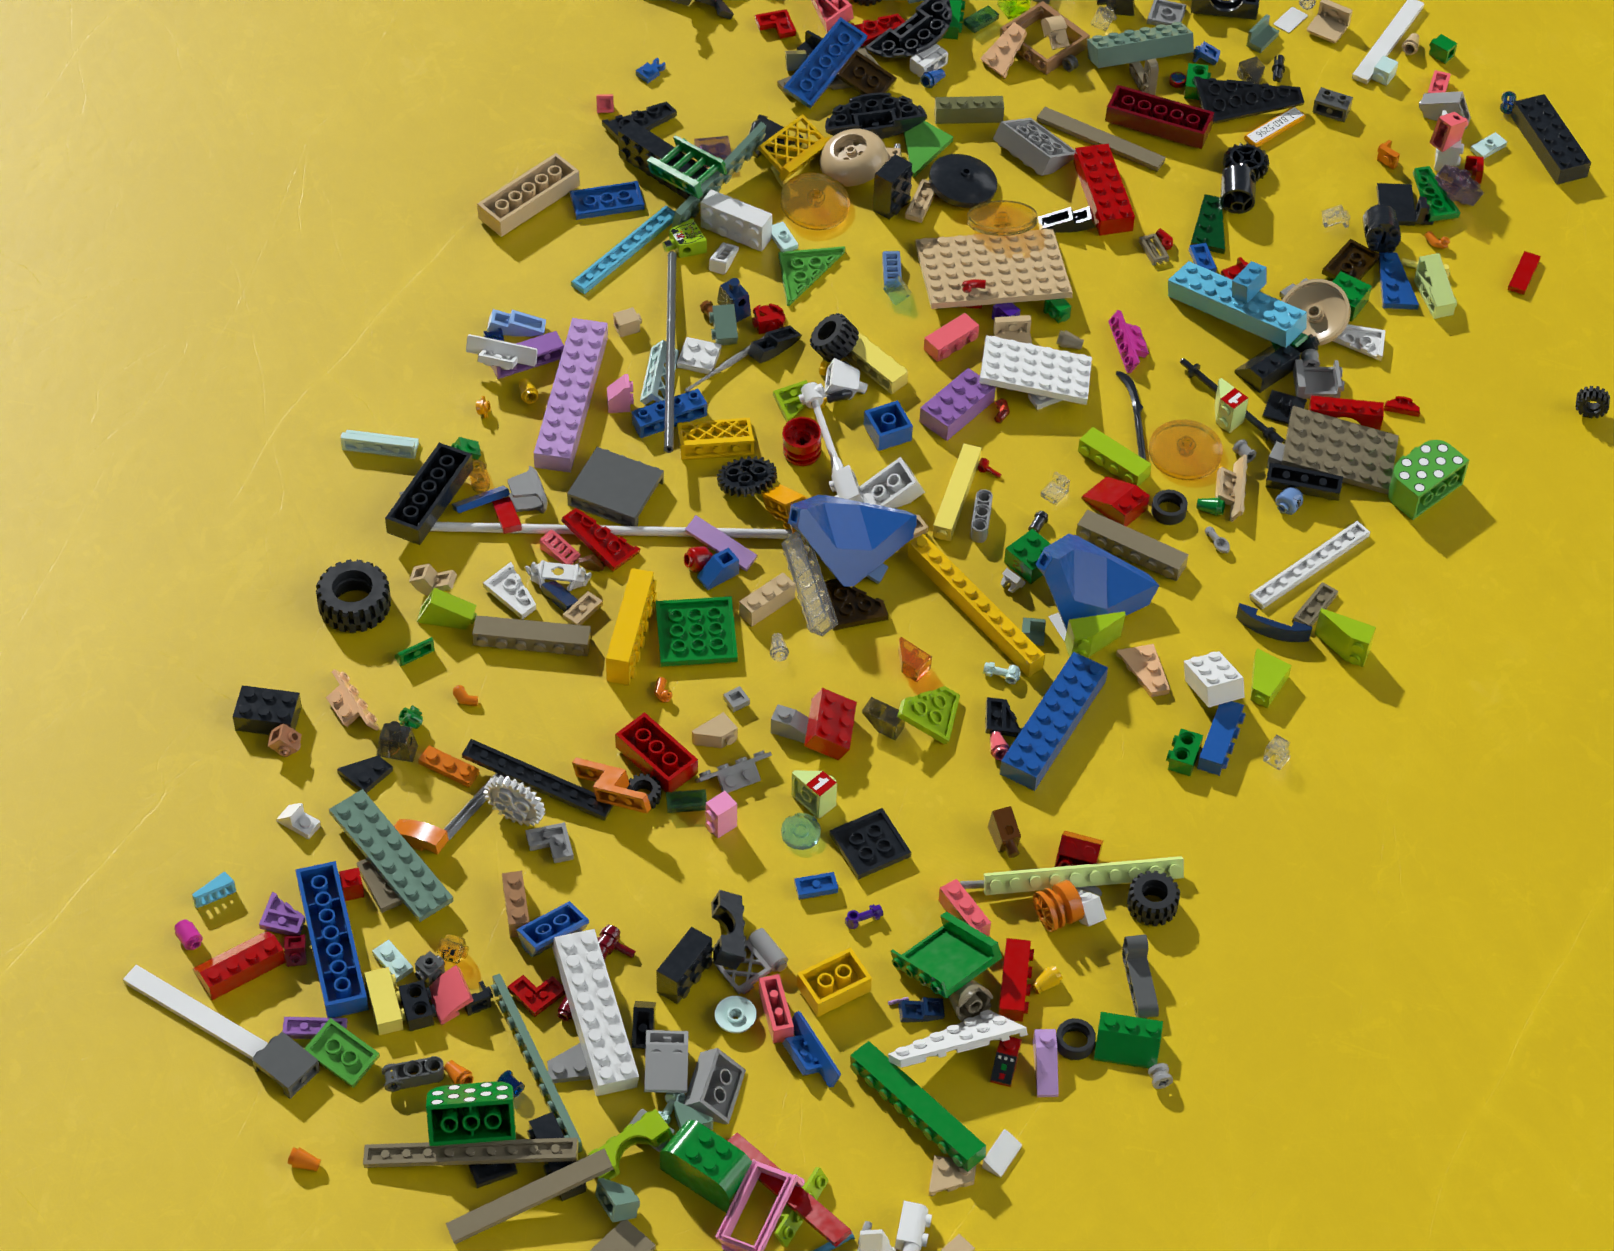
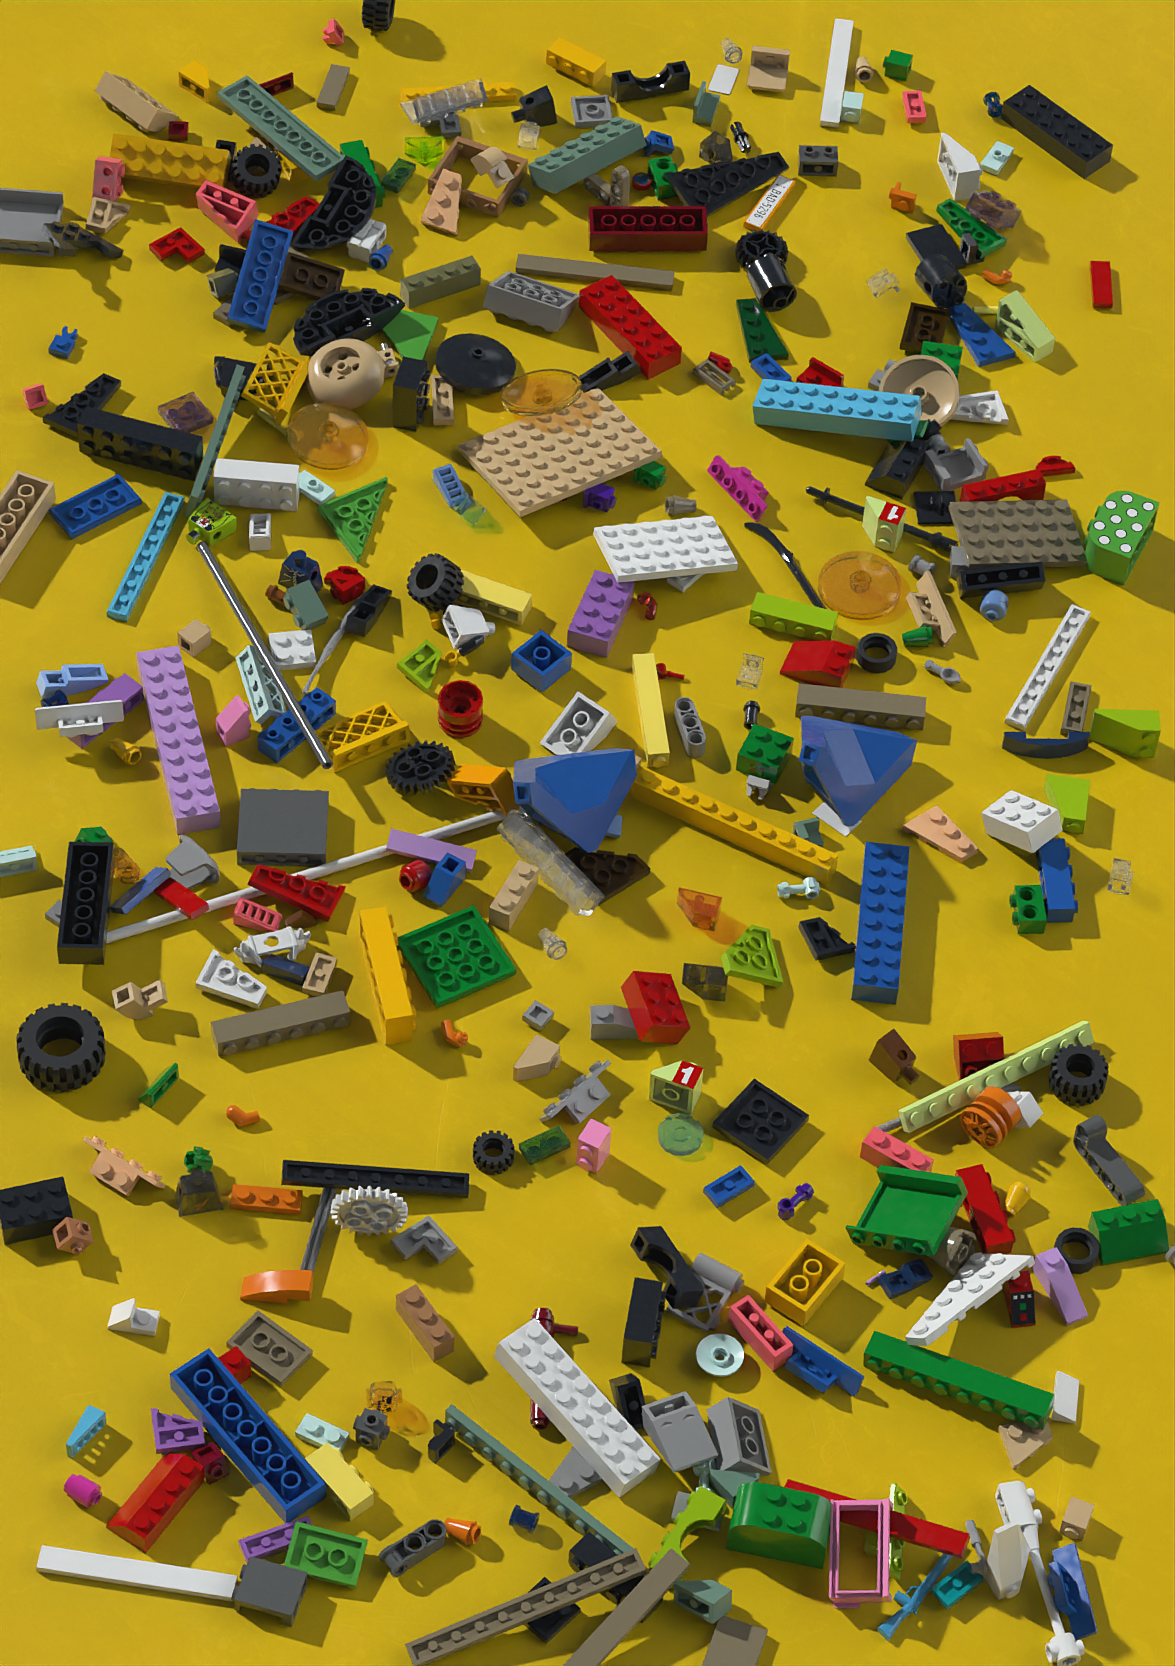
camera: 25 degrees left, 0 degrees up
(366, 773) = (178, 1240): black wing -> none
(391, 855) = (261, 1319): sand green plate -> none
(420, 1004) = (376, 1473): black brick -> none
(446, 610) = (172, 1028): lime slope -> none
(450, 994) = (408, 1448): coral slope -> none
(470, 1113) = (510, 1565): green brick -> none
(483, 407) = (86, 785): light orange plate -> none
(536, 998) = (499, 1417): red plate -> none
(540, 933) = (481, 1335): blue slope -> none
(611, 785) = (461, 1156): orange bracket -> none
(656, 752) = (487, 1104): red brick -> none
(684, 180) = (181, 457): green fence -> none
(843, 478) = (524, 735): white bar -> none
(951, 337) = (555, 542): coral brick -> none
(973, 283) = (552, 477): red arm -> none
(998, 745) = (837, 969): coral cone -> none
(1013, 328) = (616, 511): tan bracket -> none
(1093, 633) = (871, 816): lime slope -> none
(1249, 282) = (846, 382): dark azure brick -> none
(1434, 103) = (927, 129): light grey slope -> none
(1448, 131) = (965, 148): coral torso -> none
(1476, 166) = (998, 183): red bracket -> none

